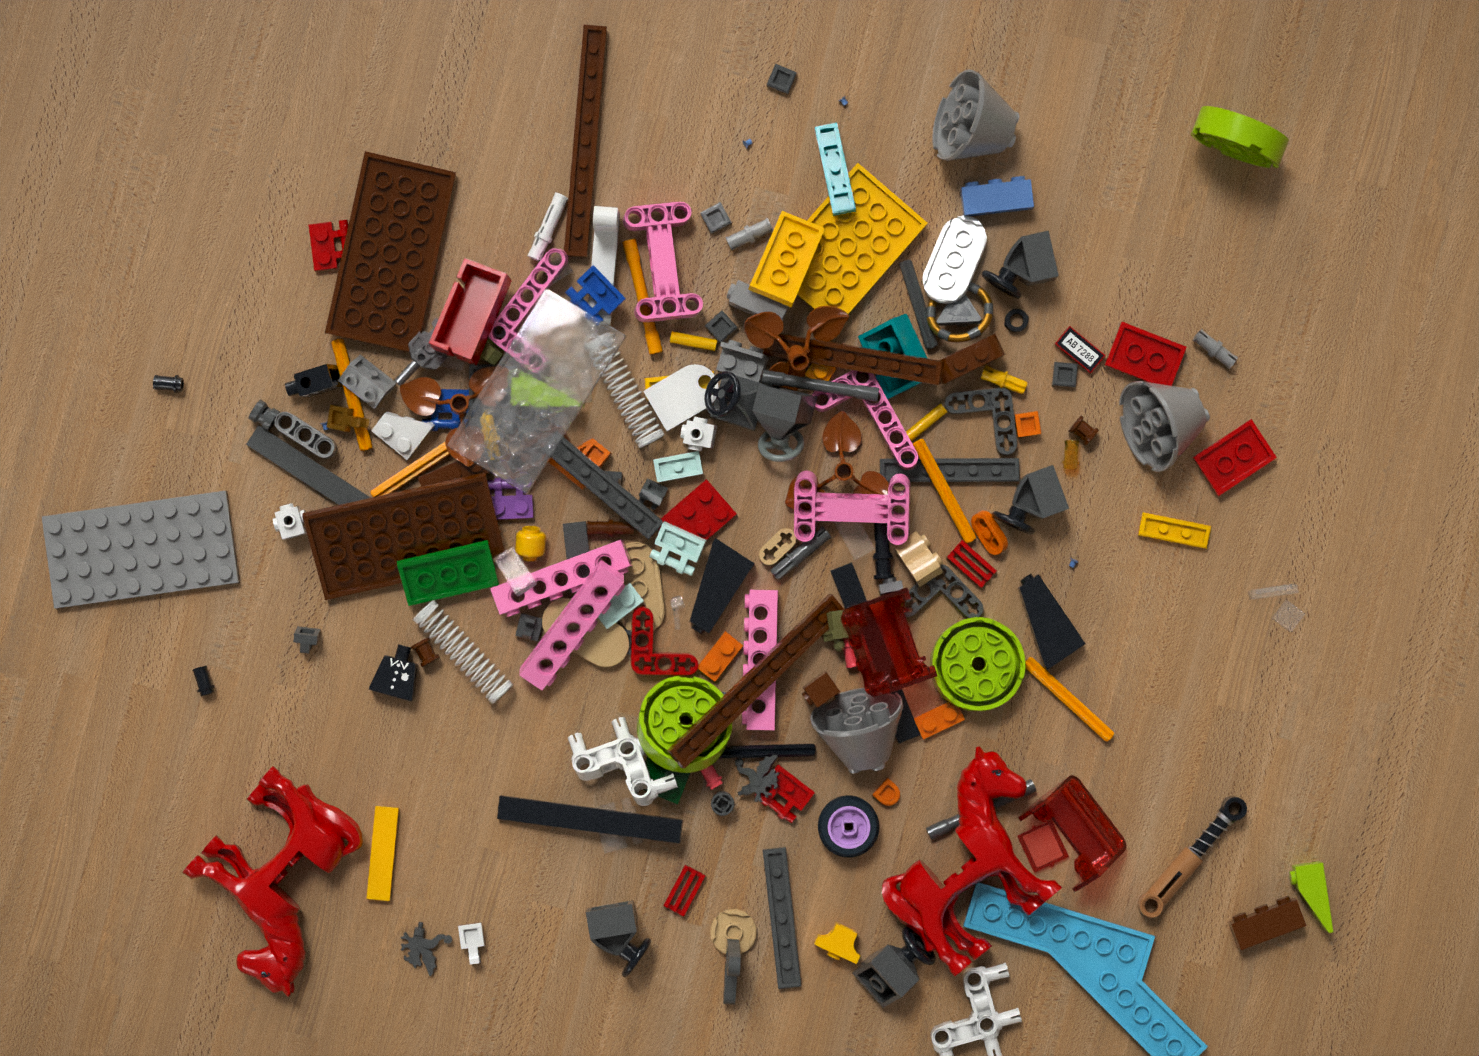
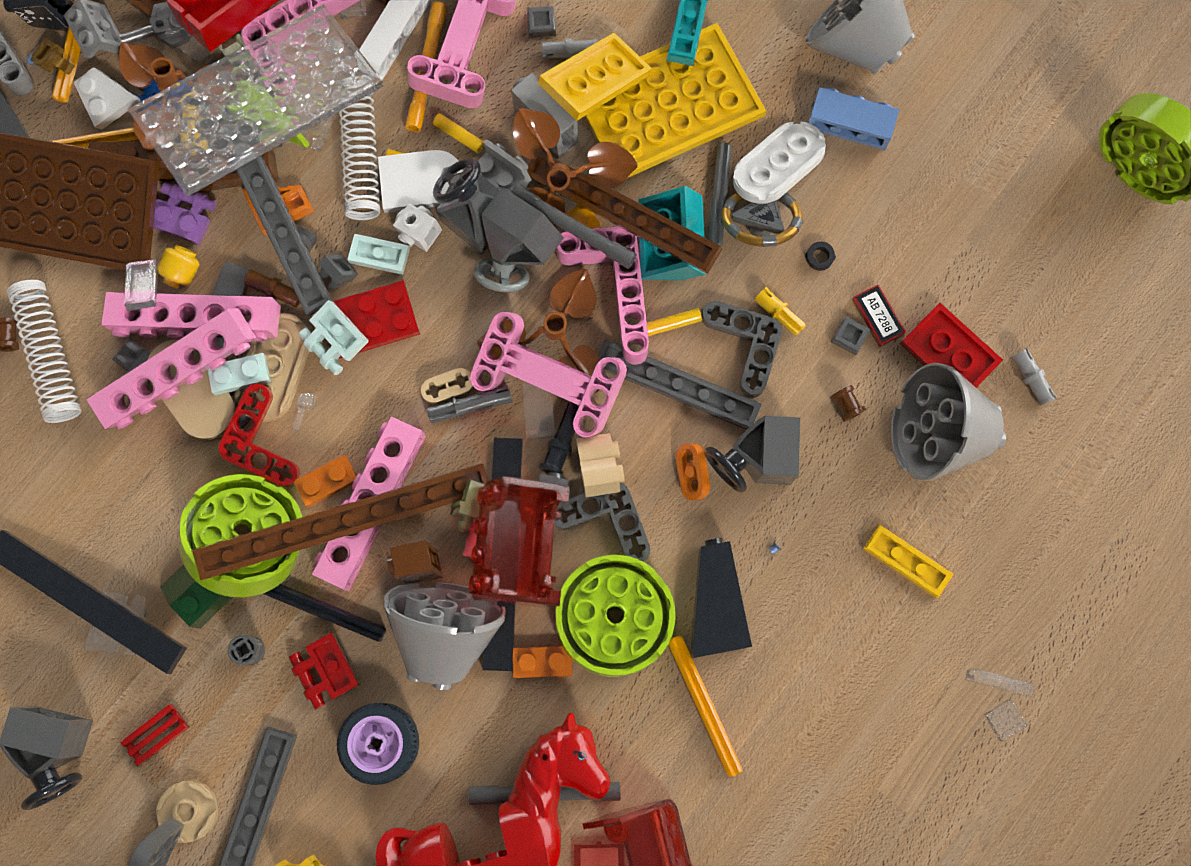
camera: 25 degrees right, 10 degrees down
(447, 573) = (69, 257): green plate -> none
(600, 289) = (381, 31): blue plate -> none
(612, 756) = (148, 540): white pin -> none
(711, 777) = (249, 613): coral pin -> none
(719, 583) = (361, 399): black slope -> none
(721, 326) = (496, 129): dark grey tile -> none
(758, 780) = (300, 639): dark grey piece -> none
(887, 793) = (444, 723): orange tile -> none
(944, 491) = (661, 403): light orange axle -> none
(971, 358) = (752, 270): reddish brown brick -> none
(986, 577) = (647, 477): red tile -> none
(1027, 424) = (786, 370): orange plate -> none
(1029, 261) = (860, 192): dark grey piece -> none
(1071, 454) = (822, 425): clear yellow pin -> none
(1234, 457) = (1011, 507): red plate -> none

